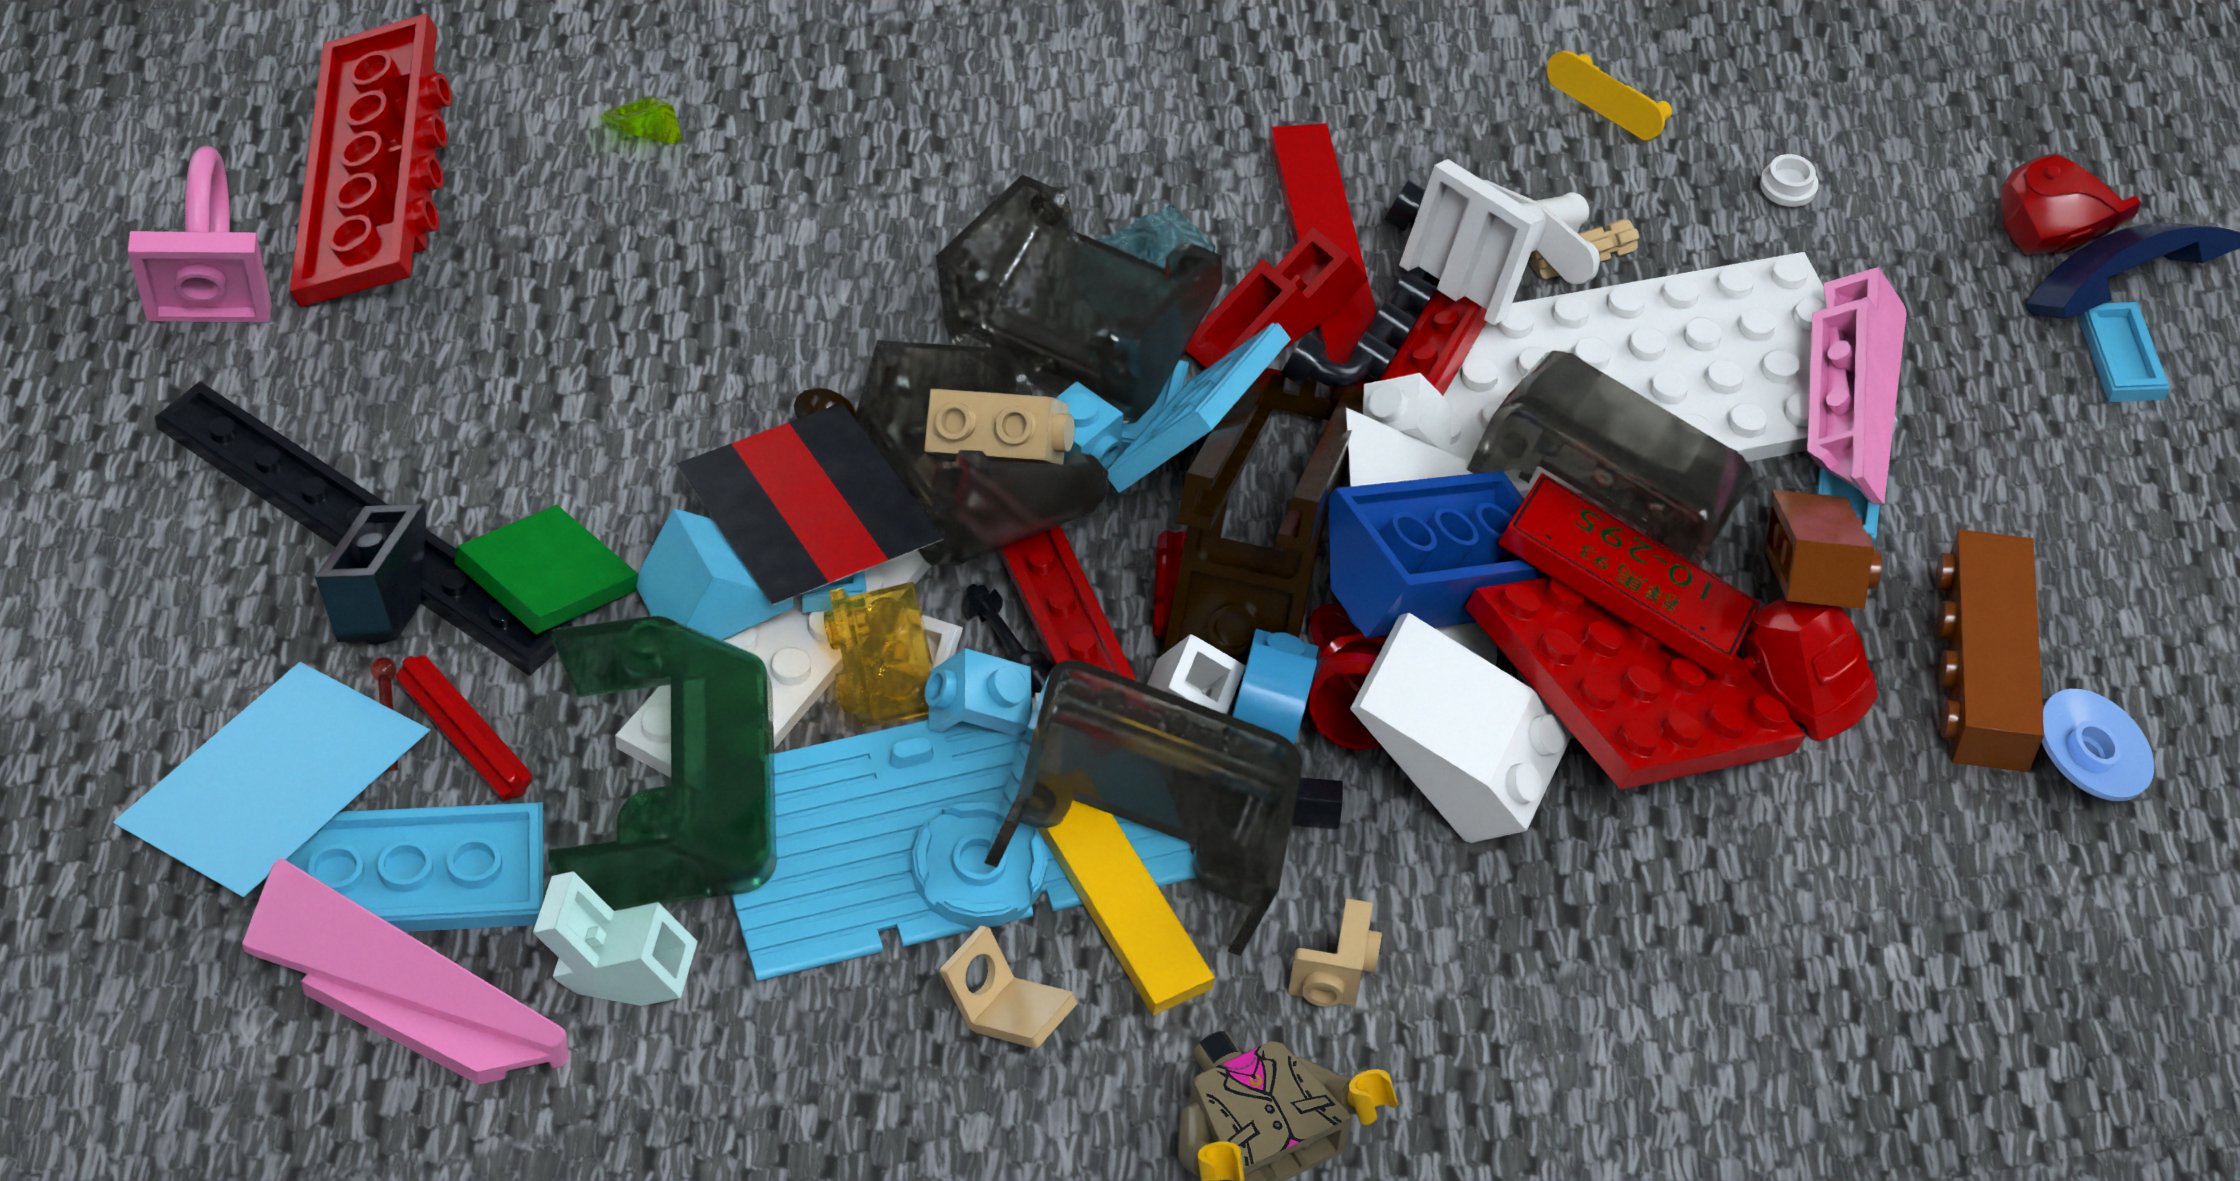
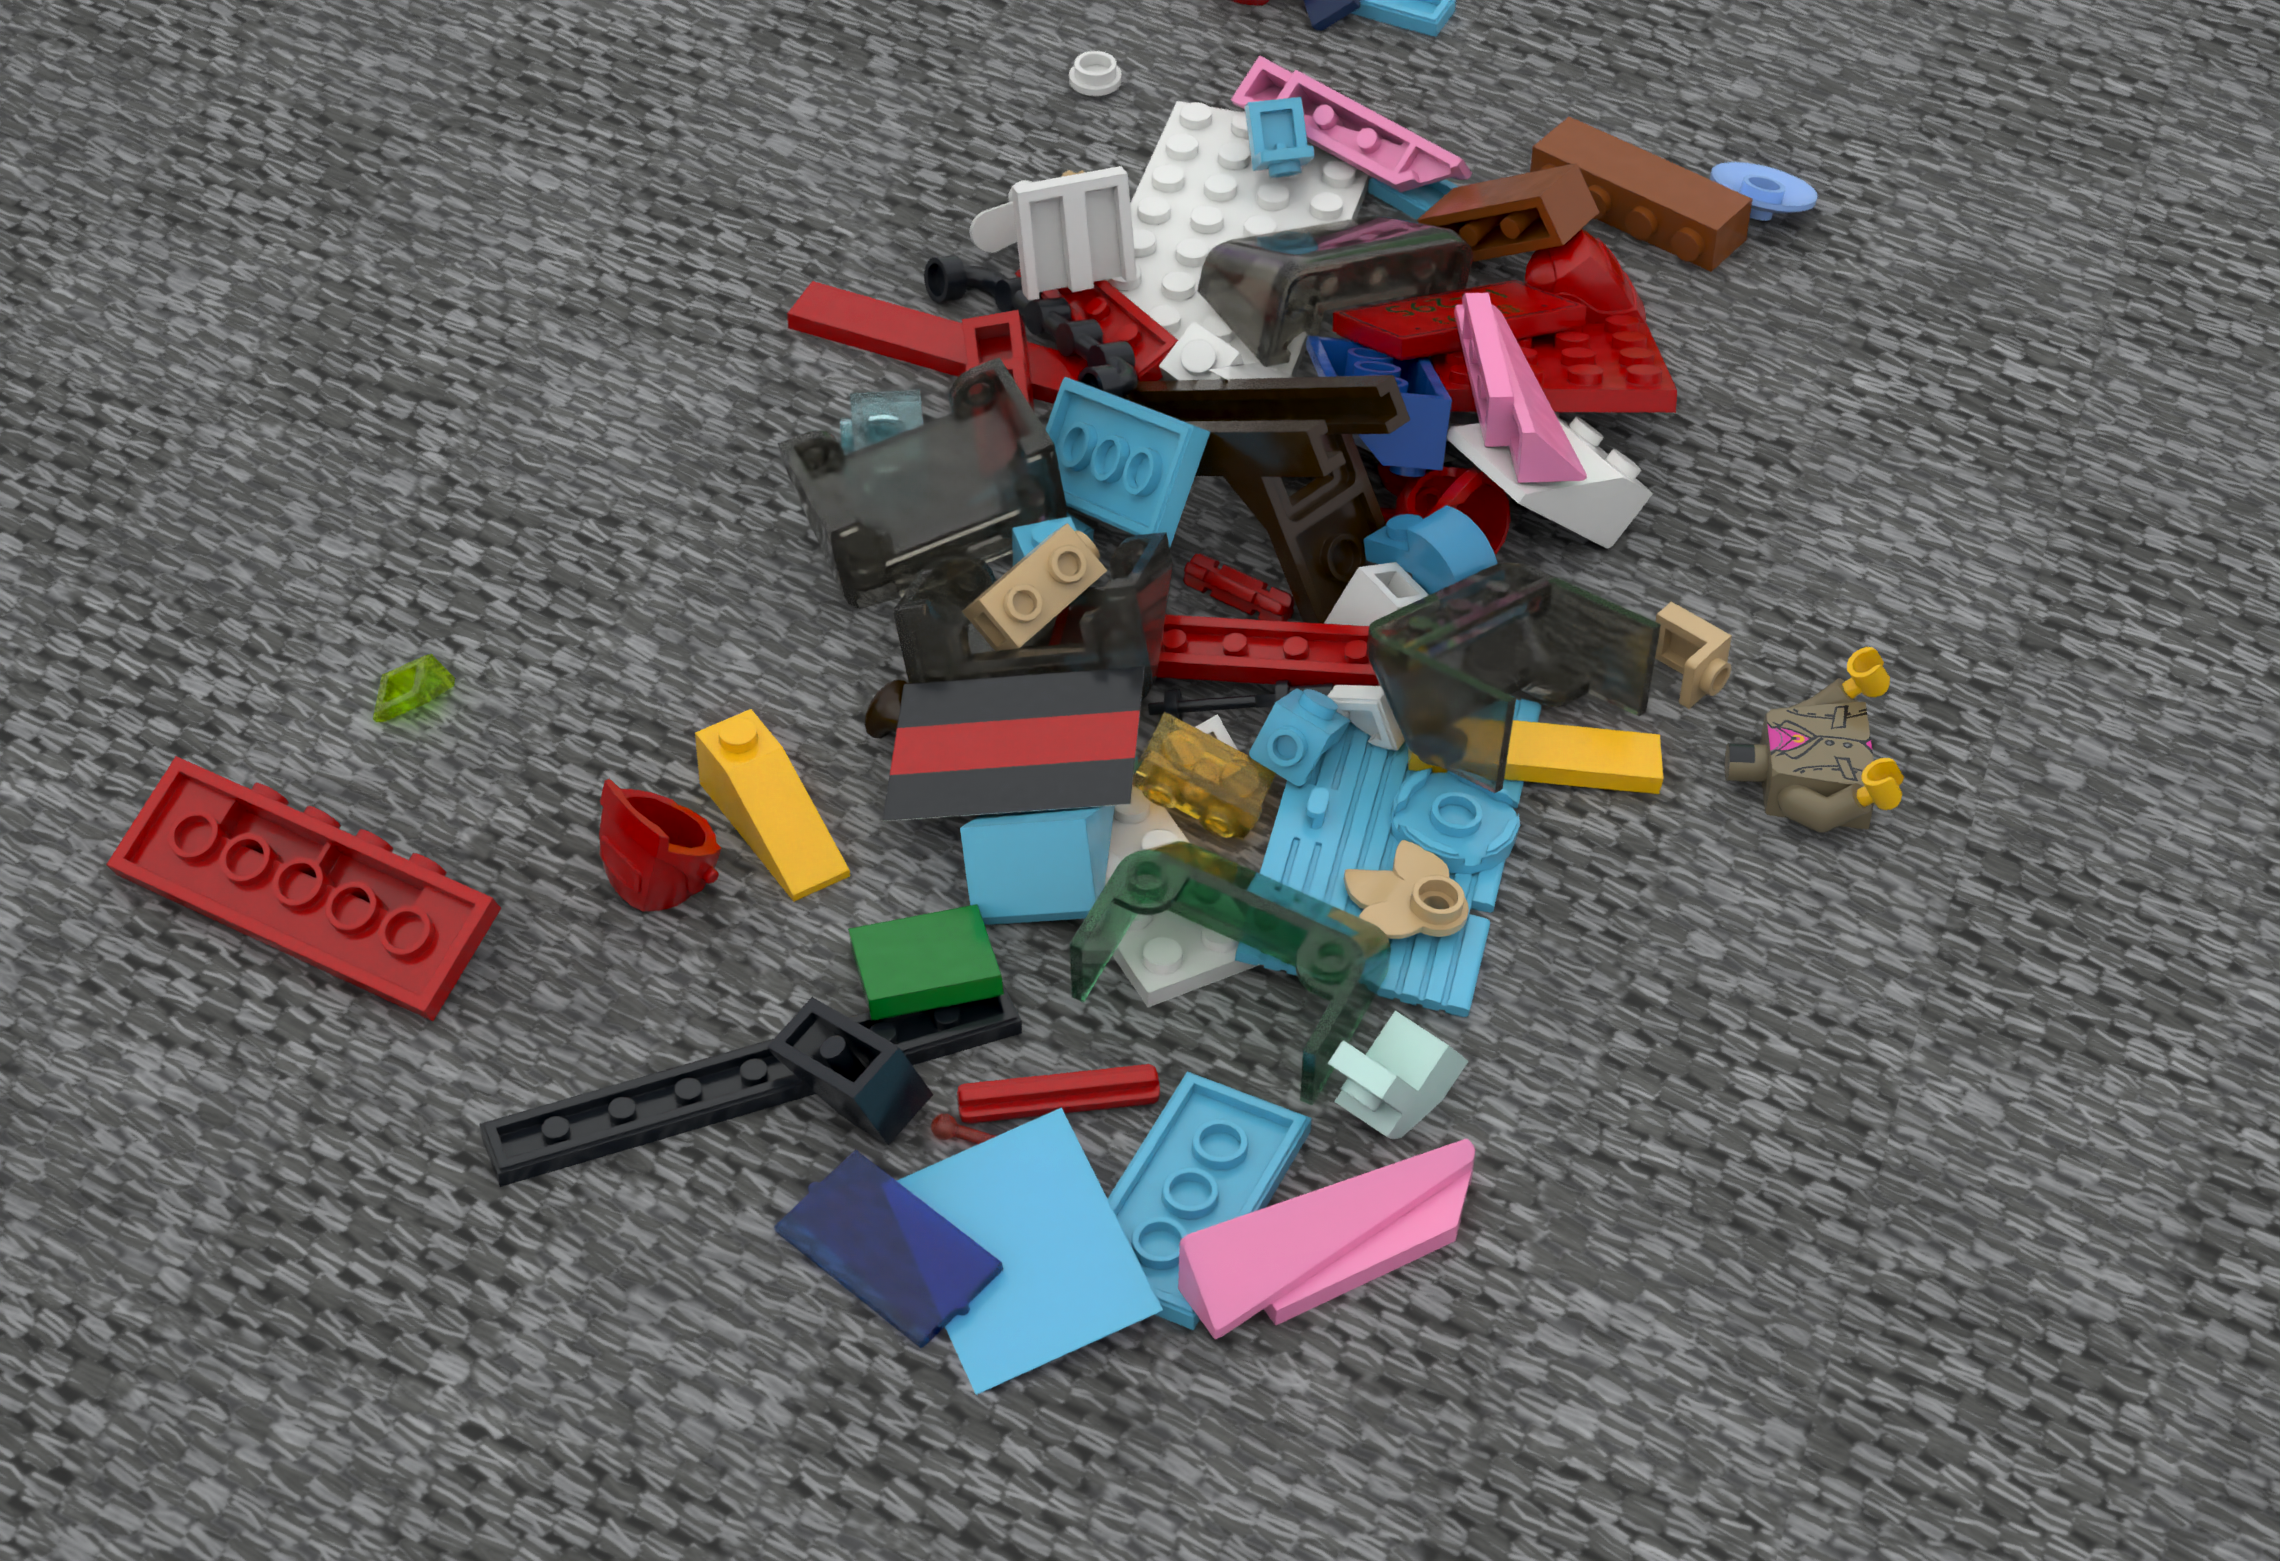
camera: 55 degrees left, 5 degrees down
(207, 268) = (372, 1046): bright pink tile -> none
(225, 693) = (889, 1248): none -> clear blue piece
(543, 331) = (654, 848): none -> red helmet
(657, 387) = (768, 804): none -> yellow slope
(846, 860) = (1411, 896): none -> tan plate
(1005, 1004) = (1615, 858): tan bracket -> none
(1490, 631) = (1509, 397): none -> bright pink wedge
(1606, 95) = (919, 121): yellow piece -> none
(1779, 333) = (1278, 136): none -> medium azure bracket

